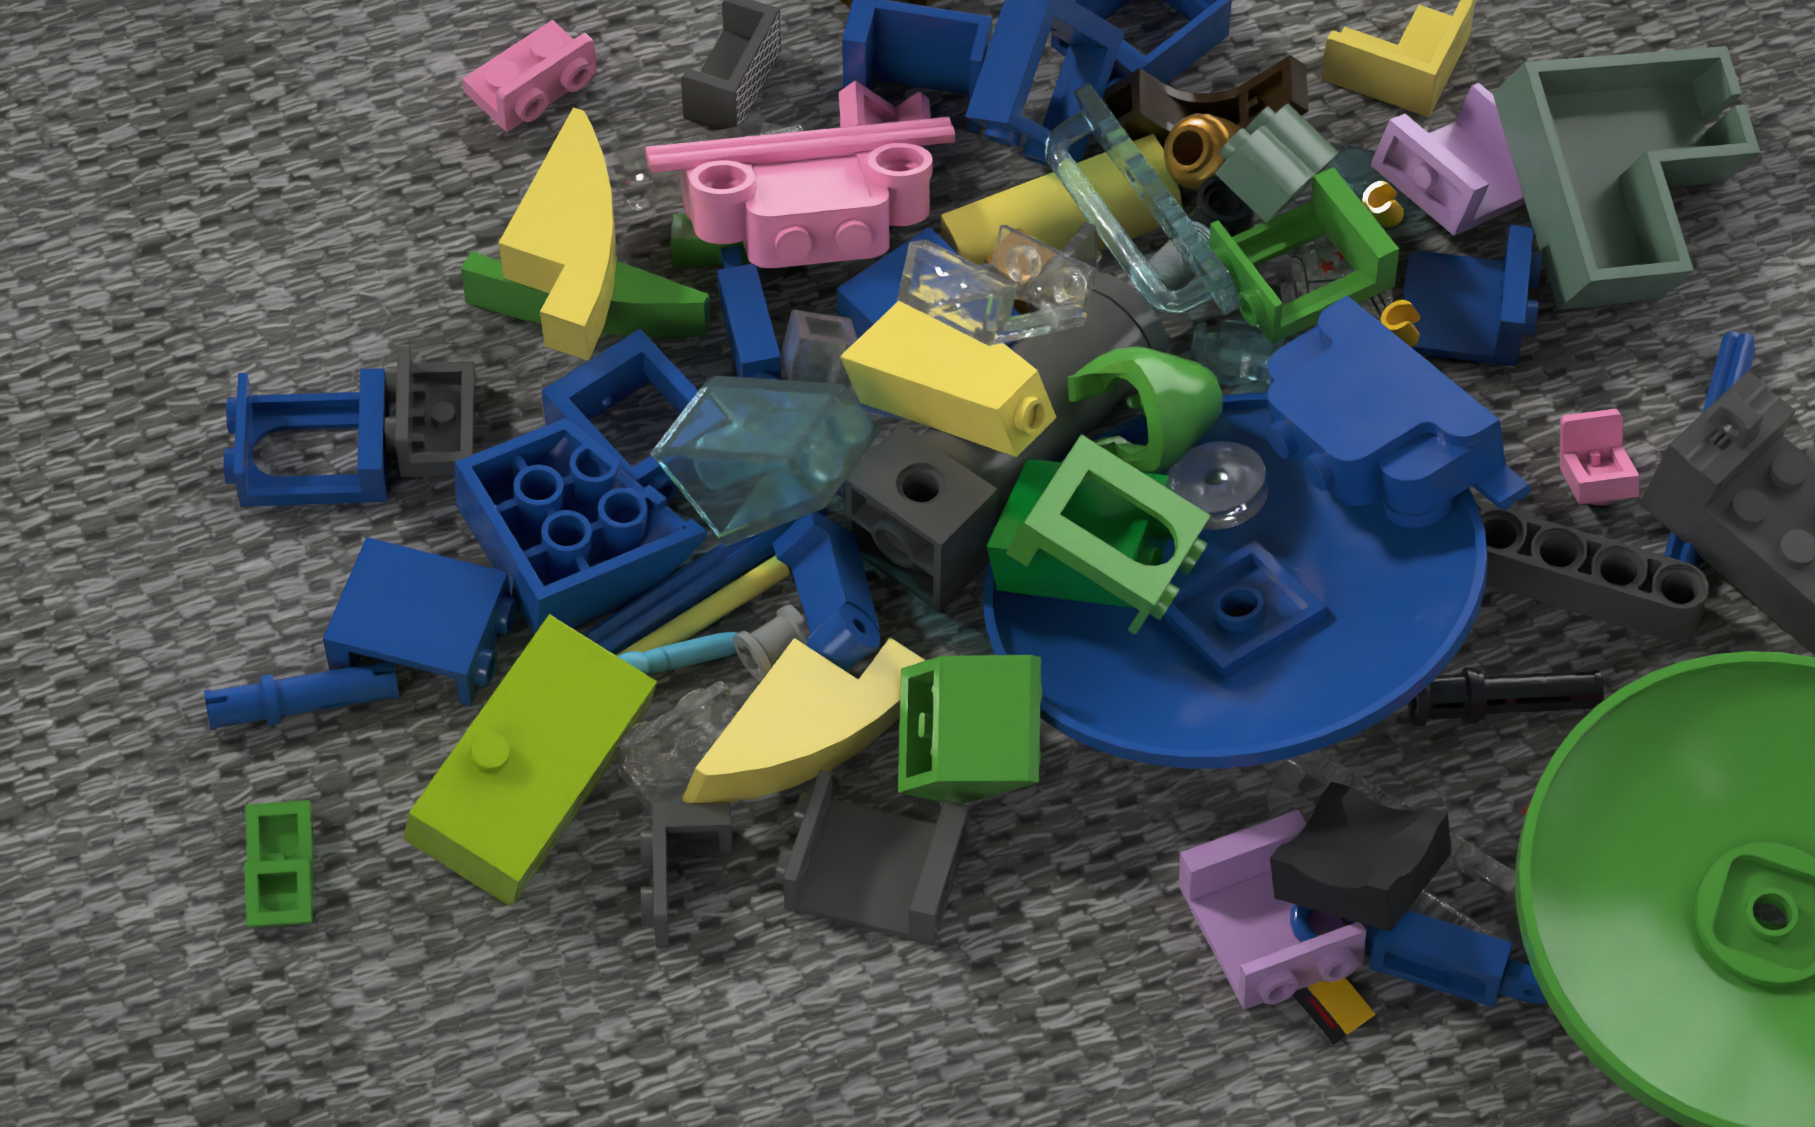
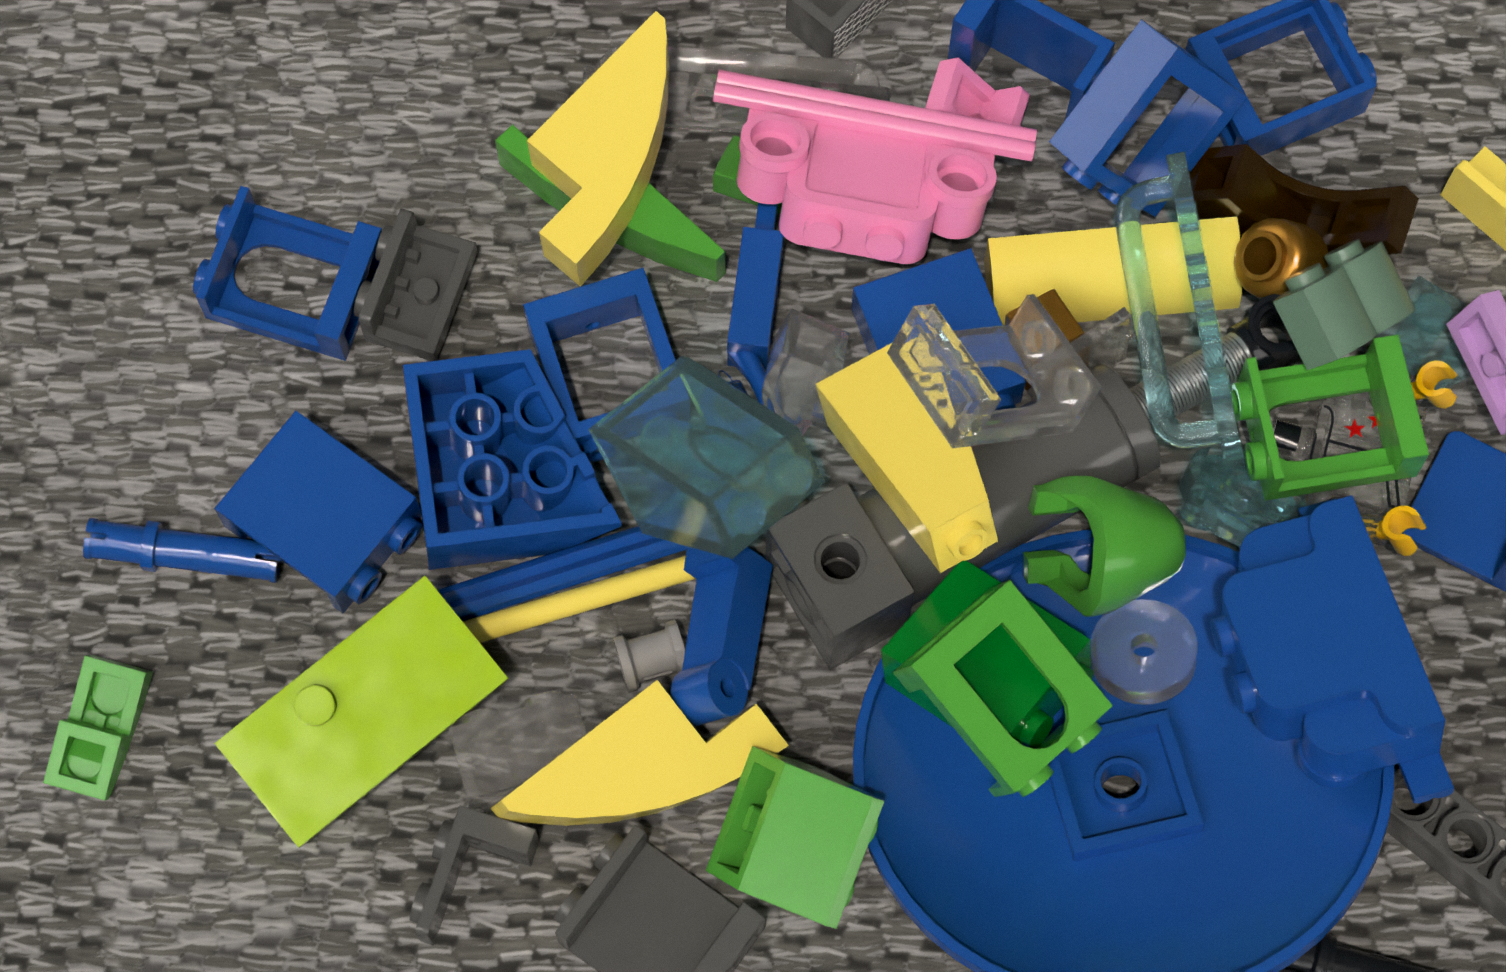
camera: 20 degrees right, 15 degrees up
(682, 653) = (508, 634): medium azure piece -> none

